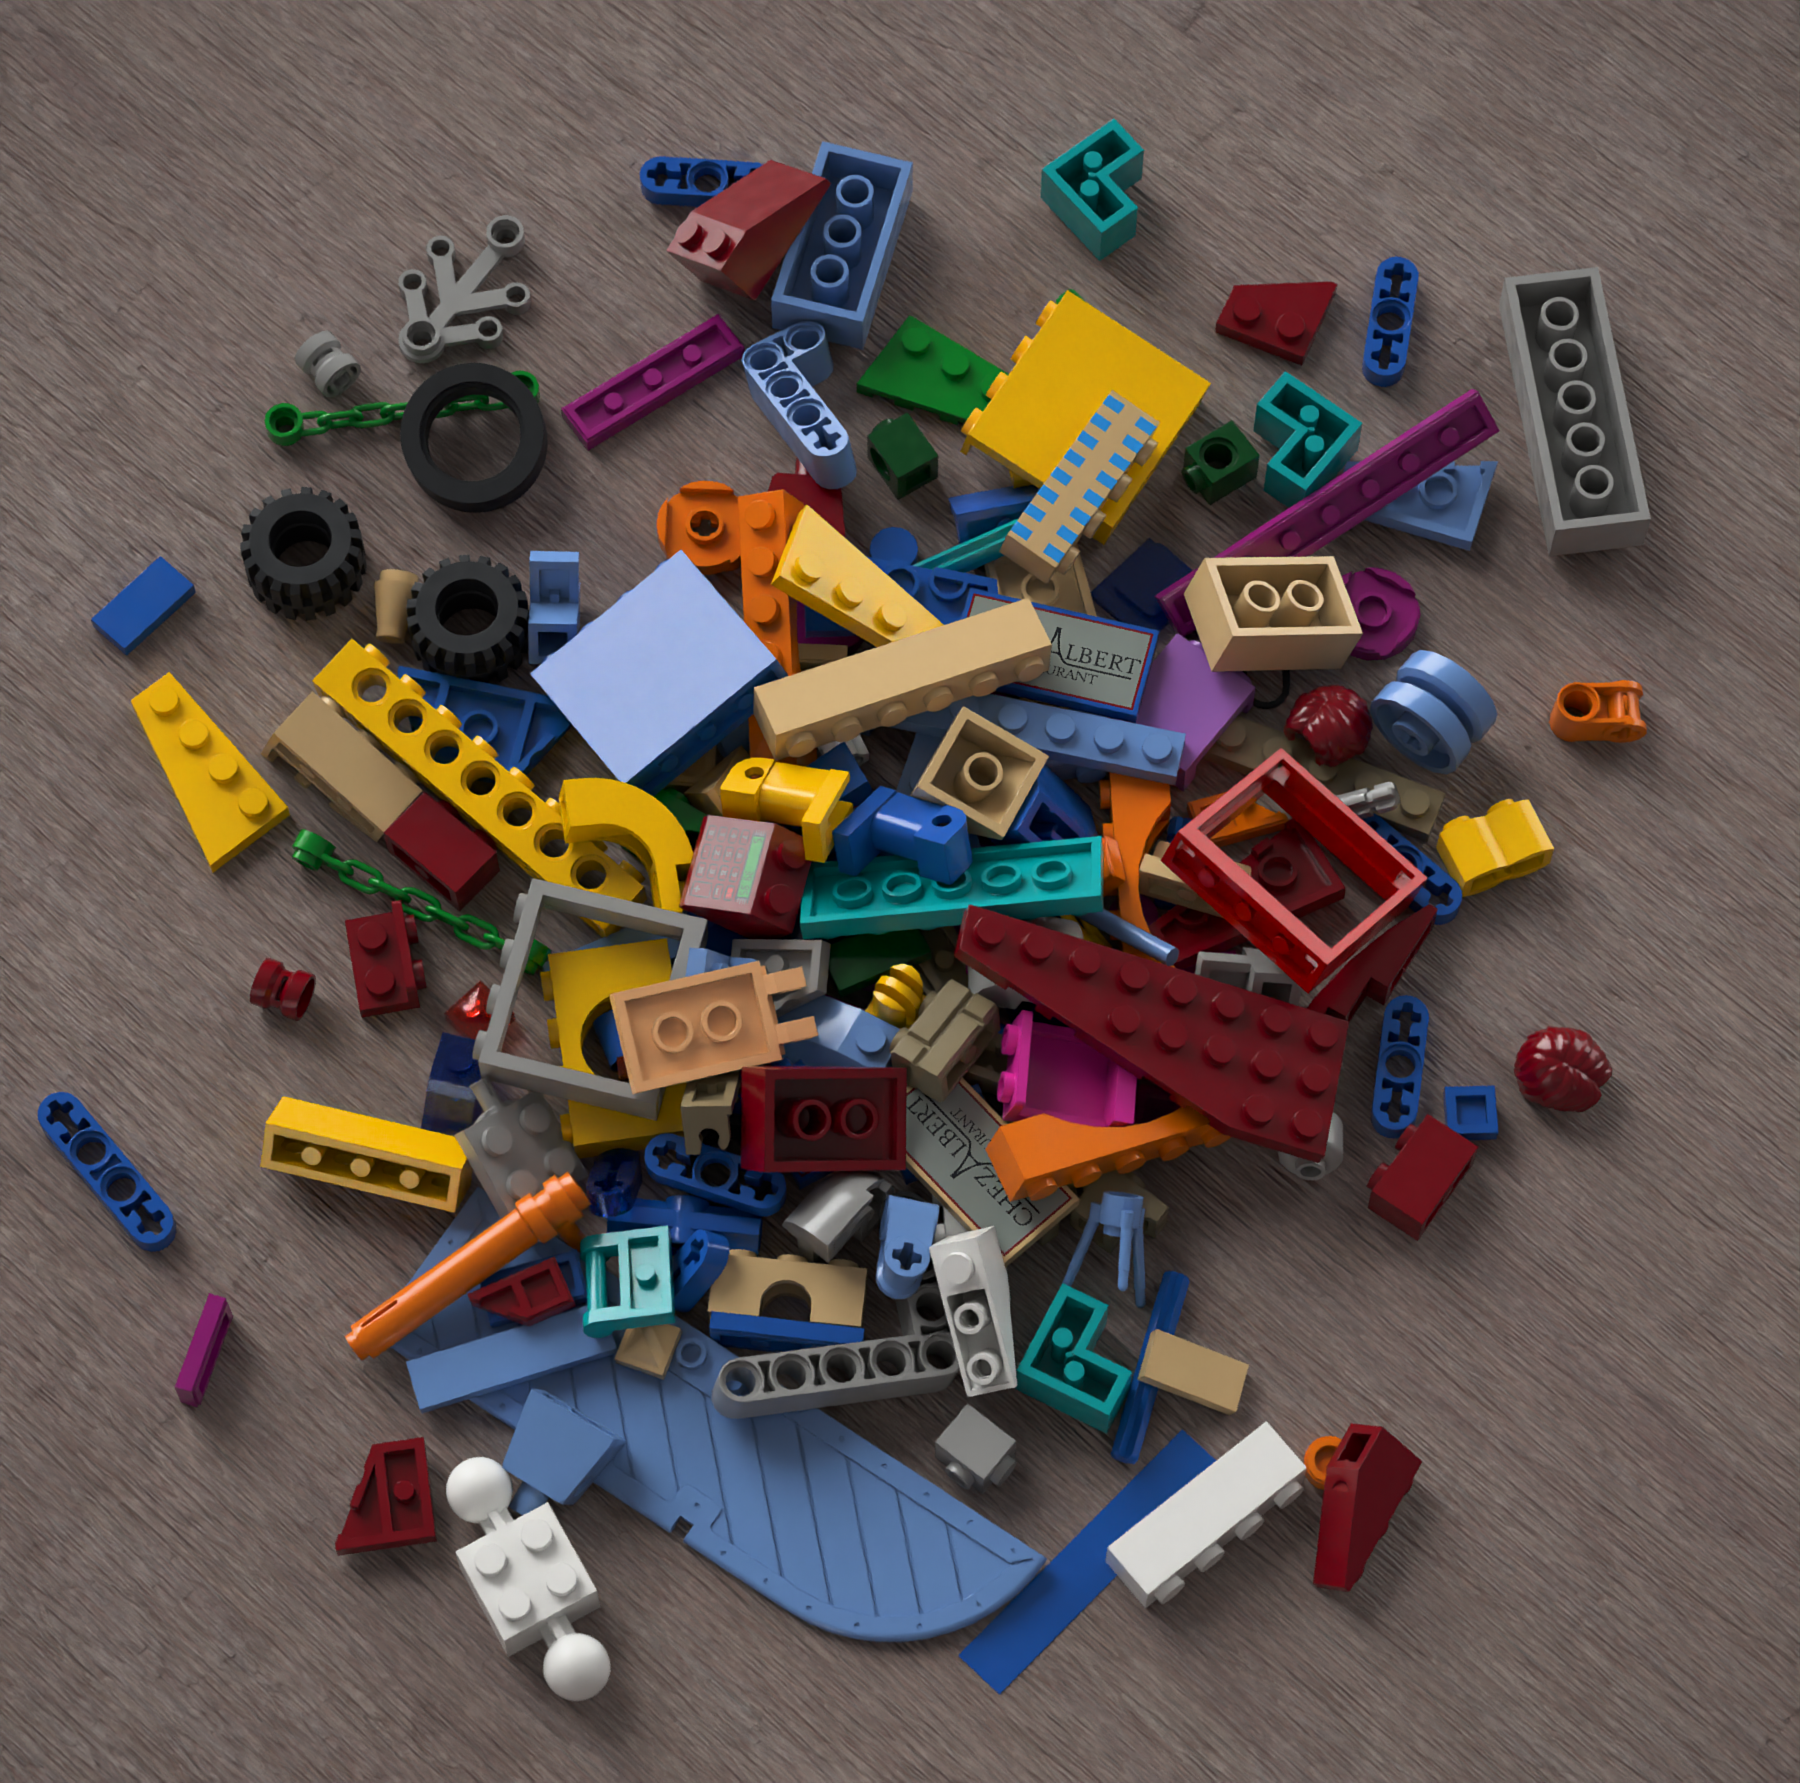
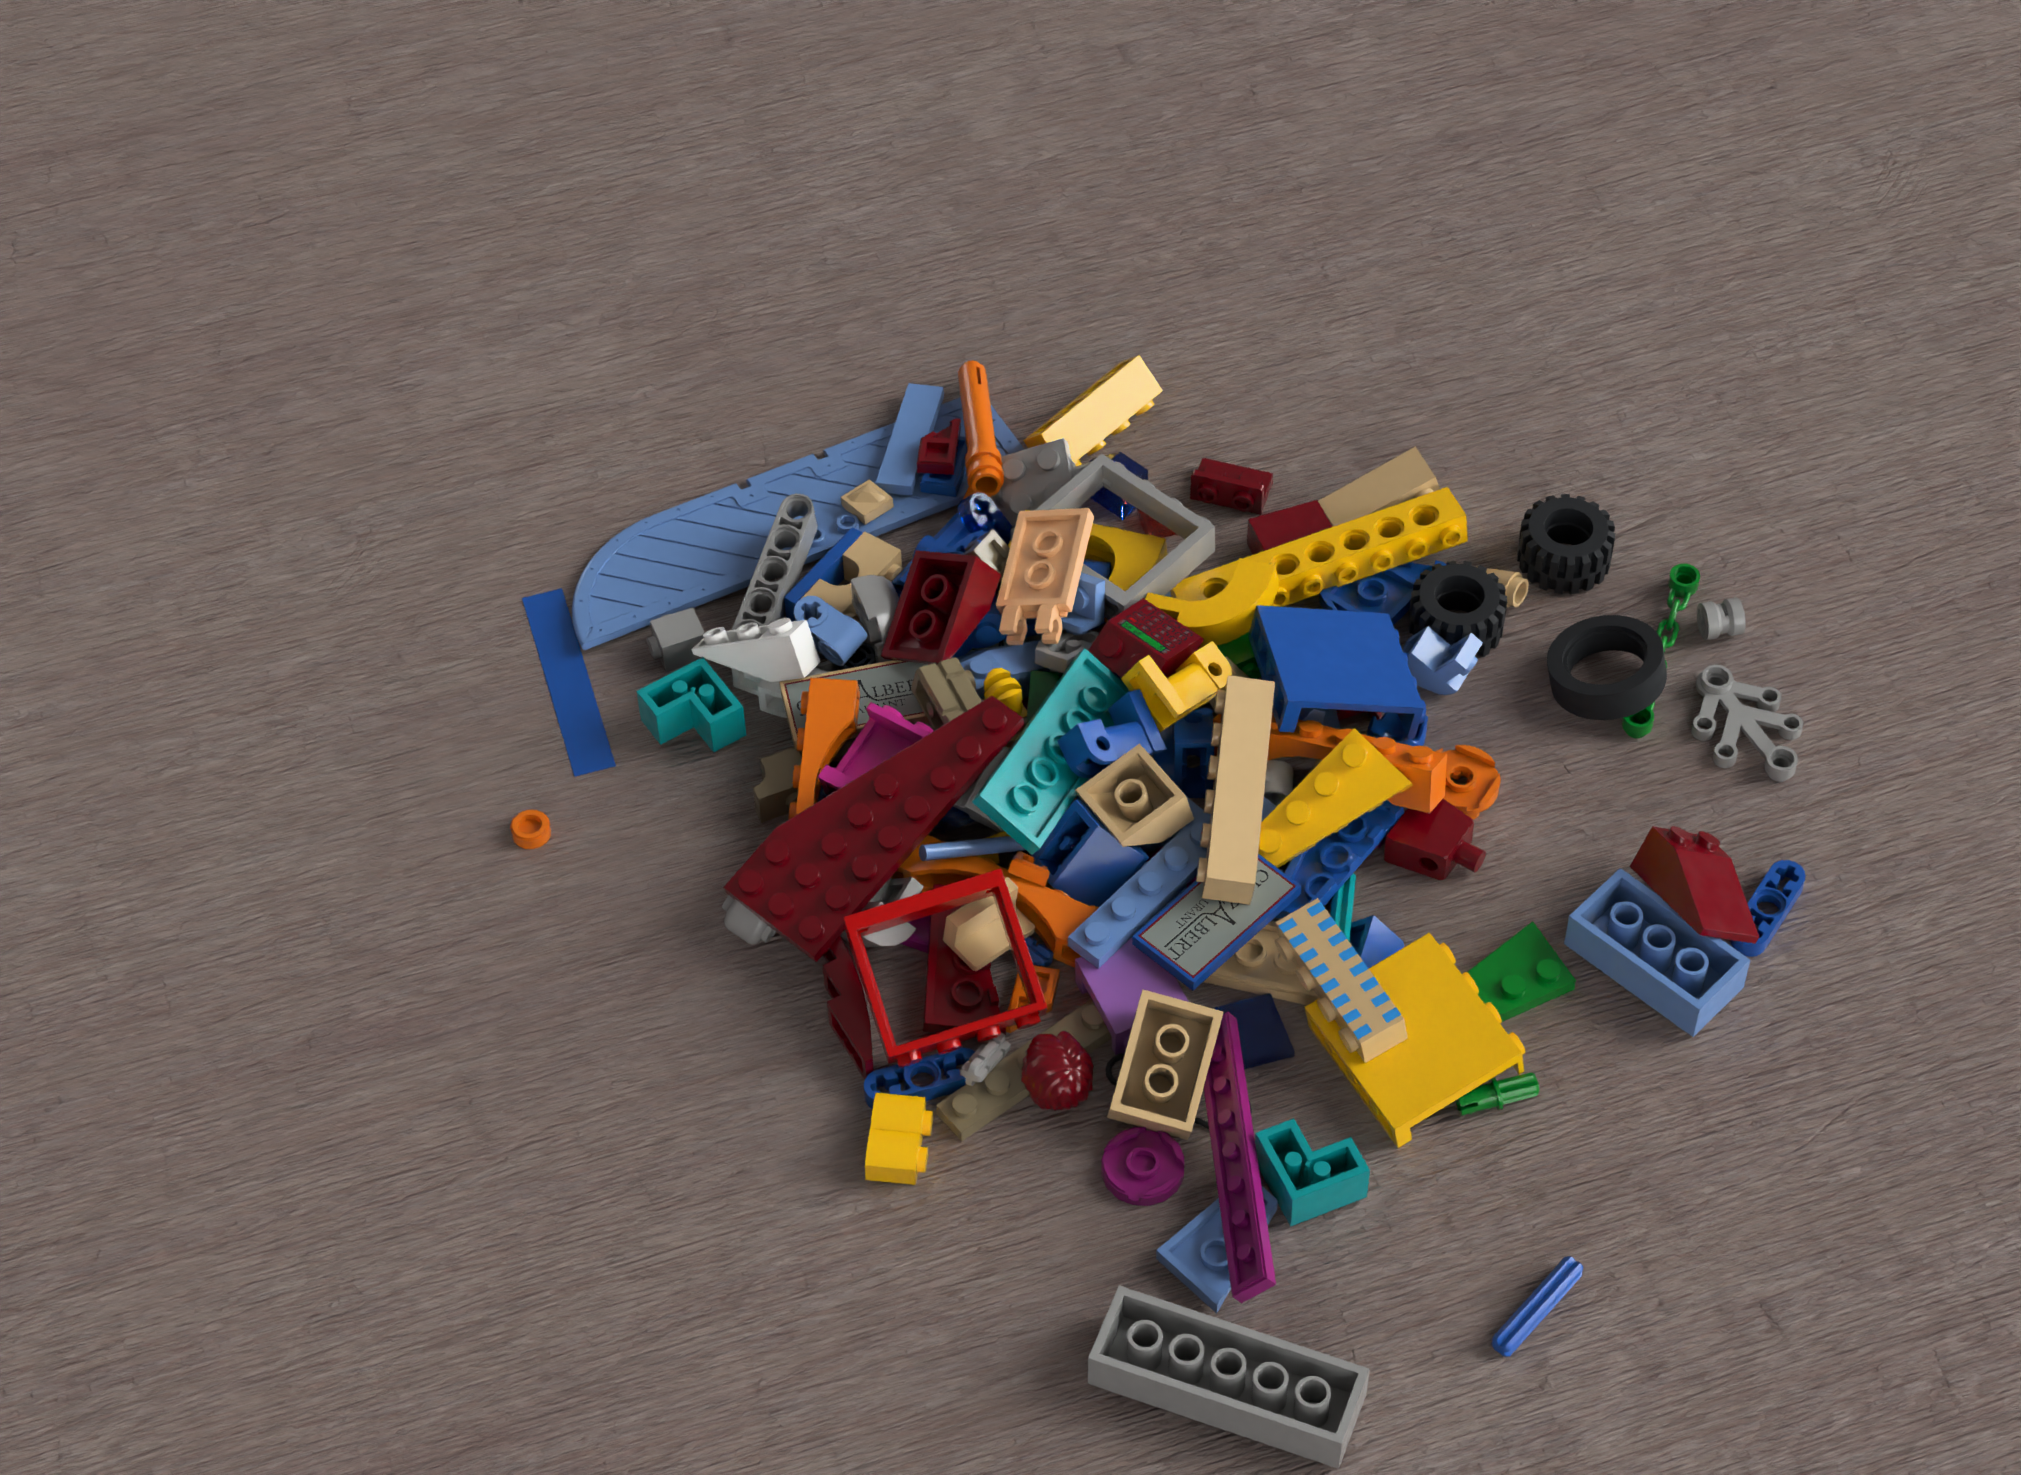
camera: 120 degrees right, 15 degrees down
(104, 1173) = (1175, 310): blue beam -> none
(143, 605) = (1580, 461): blue tile -> none
(204, 1350) = (1021, 302): magenta tile -> none
(211, 779) = (1441, 445): yellow wing -> none
(282, 989) = (1244, 421): dark red wheel -> none
(315, 851) = (1333, 477): green piece -> none
(391, 1502) = (862, 355): dark red wing -> none
(528, 1579) = (762, 391): white brick -> none
(556, 1452) = (833, 432): medium blue torso -> none
(643, 1278) = (910, 497): teal plate -> none
(653, 382) = (1605, 805): magenta tile -> none
(698, 1267) = (898, 538): blue beam -> none
(781, 382) = (1522, 855): medium blue beam -> none
(895, 544) = (1376, 887): blue tile -> none
(902, 455) = (1453, 917): dark green brick -> none
(1089, 186) = (1622, 1133): teal brick -> none
(1122, 1218) = (763, 754): medium blue plant -> none
(1143, 1395) = (667, 761): blue axle -> none
(1193, 1372) = (642, 774): tan tile -> none
(1206, 1515) = (543, 737): white brick -> none
(1226, 446) = (1326, 1100): dark green brick -> none
(1277, 316) = (1441, 1230): dark red wing -> none
(1313, 202) = (1537, 1306): none -> blue axle
(1359, 1498) = (494, 827): dark red slope -> none
(1398, 338) = (1398, 1323): blue beam -> none
(1417, 1036) = (781, 1018): blue beam -> none
(1421, 1176) = (682, 968): dark red brick -> none
(1433, 712) = (1021, 1134): medium blue wheel -> none
(1471, 1111) = (707, 1023): blue plate -> none
(1562, 1069) = (699, 1092): dark red hair -> none
(1608, 710) = (956, 1271): orange piece -> none

